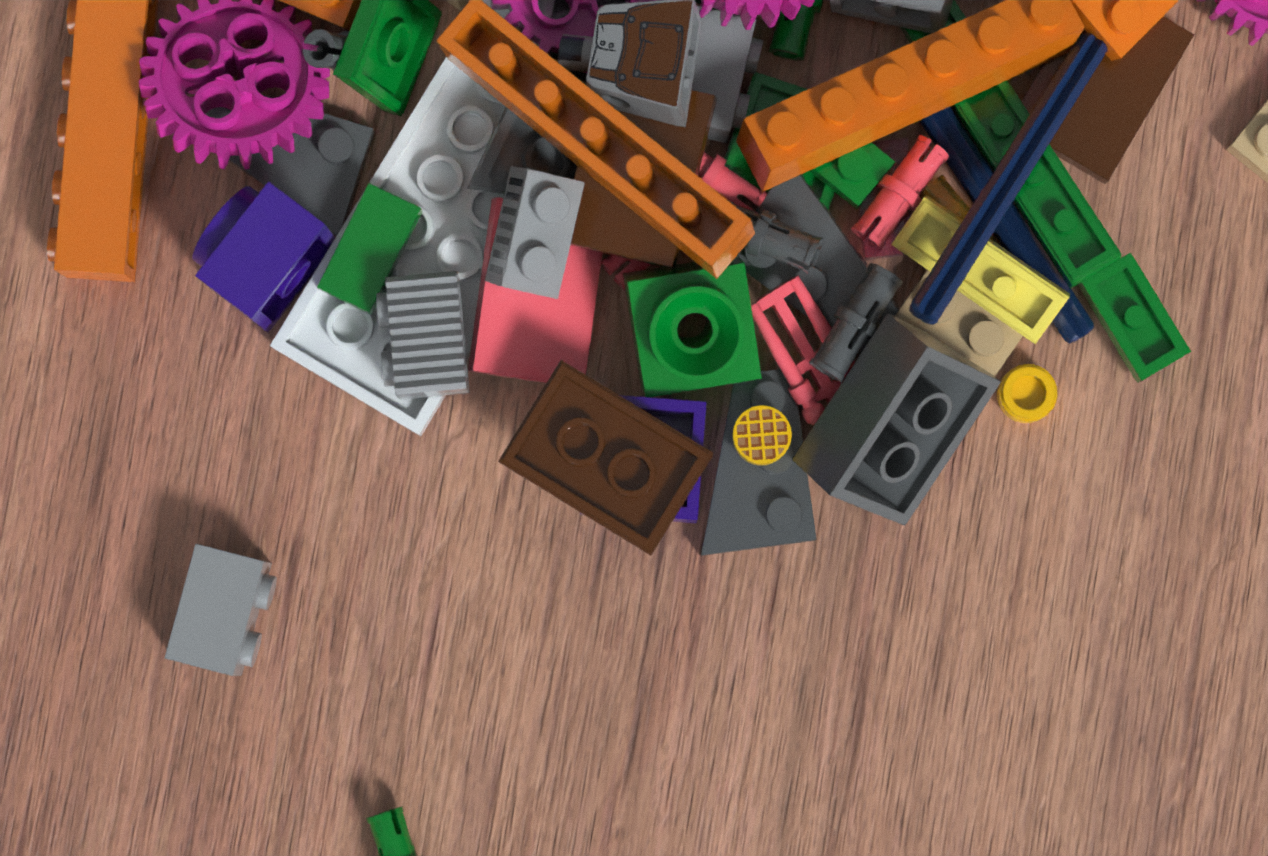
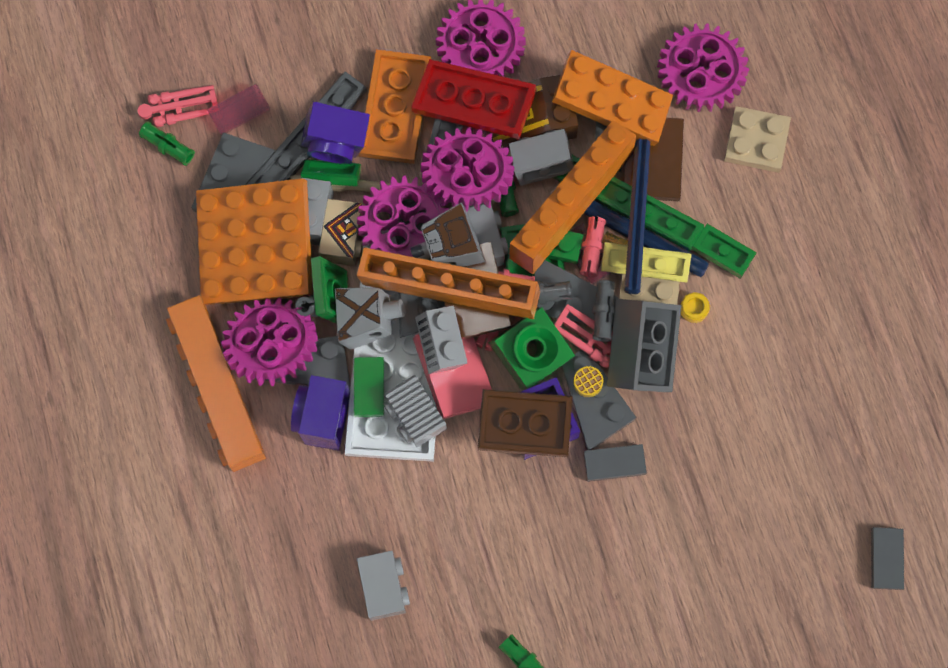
camera: 25 degrees left, 10 degrees down
(424, 116) = (365, 315): none -> light grey torso
(737, 600) = (615, 462): none -> dark grey tile

